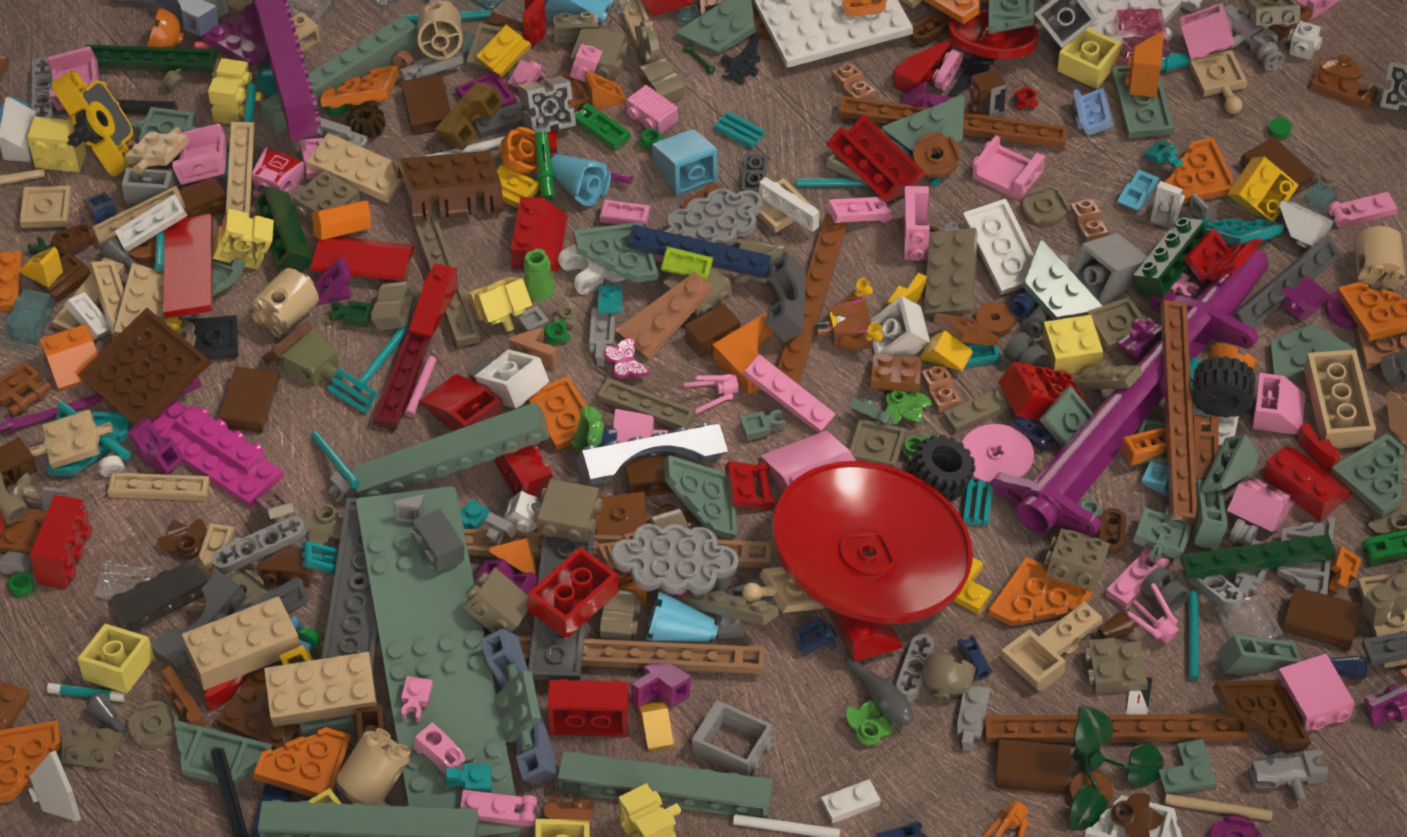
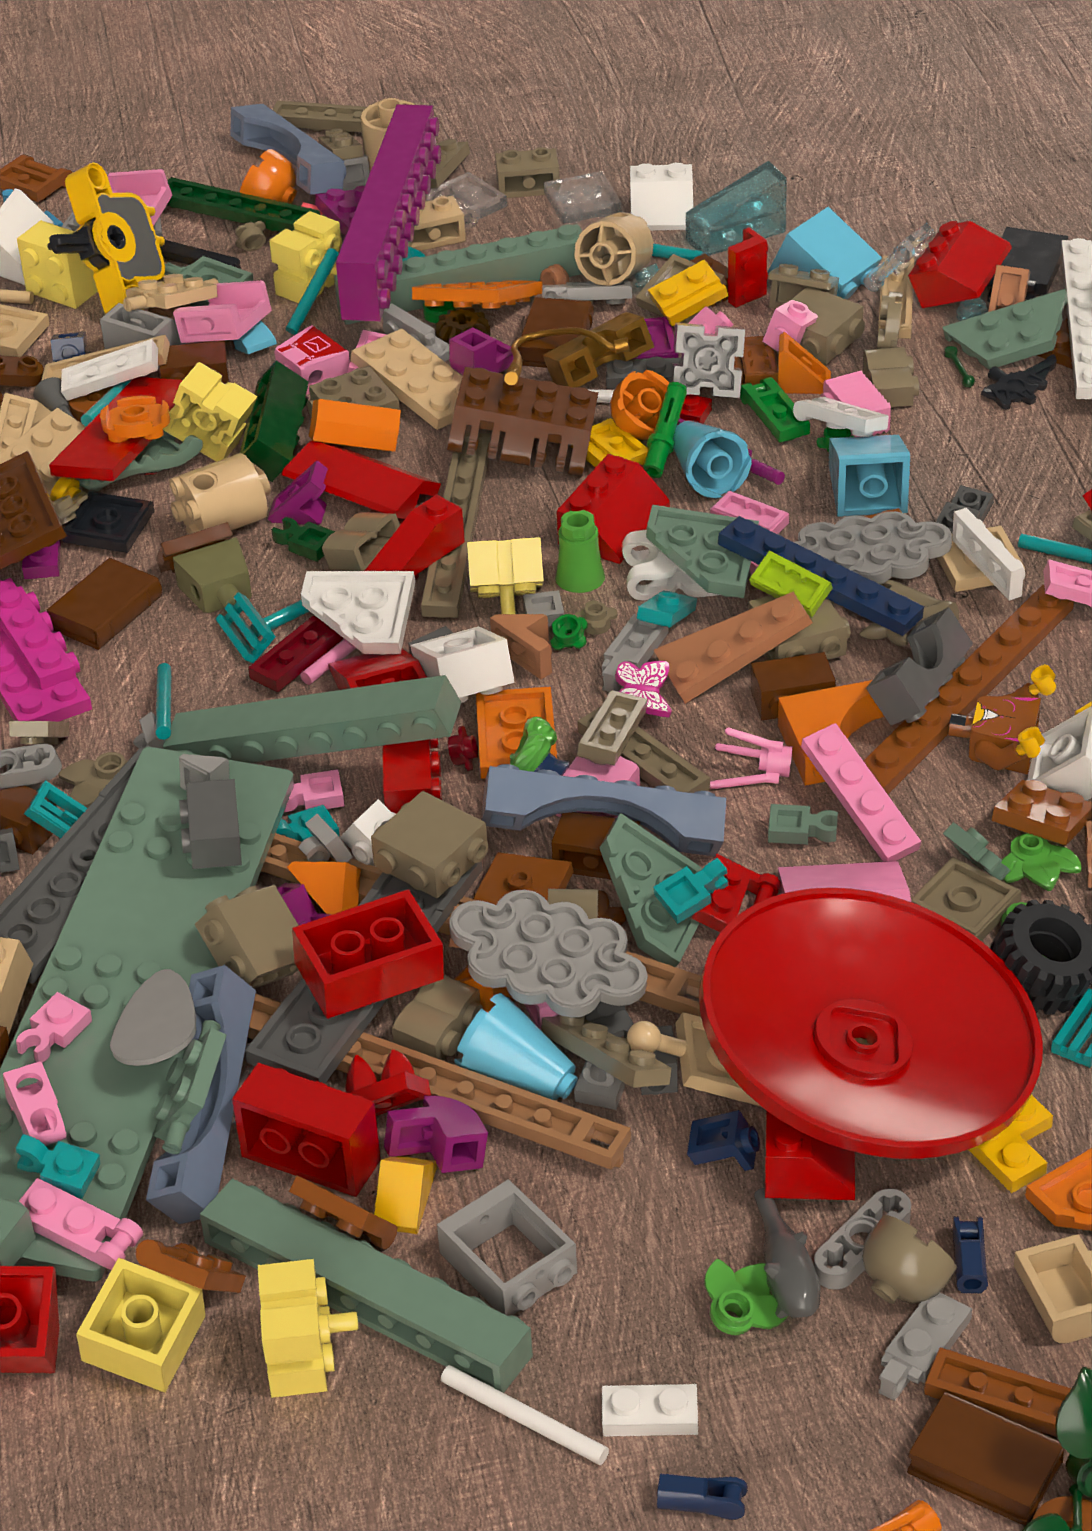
camera: 25 degrees right, 10 degrees down
(210, 261) = (135, 418): none -> orange plate
(240, 166) = (269, 332): tan plate -> none
(393, 140) = (478, 350): none -> magenta brick
(424, 355) = (362, 606): none -> white plate
(436, 154) = (515, 368): none -> pearl gold piece
(467, 489) = (317, 790): none -> bright pink plate
(478, 674) = (155, 1021): none -> light grey shield
(625, 662) = (397, 1085): none -> red tile
(627, 396) = (612, 728): none -> dark tan plate
(643, 751) = (349, 1216): none -> dark orange plate
(652, 124) = (841, 415): none -> white plate
(727, 492) = (689, 892): none -> teal plate
(742, 128) = (975, 456): teal tile -> none

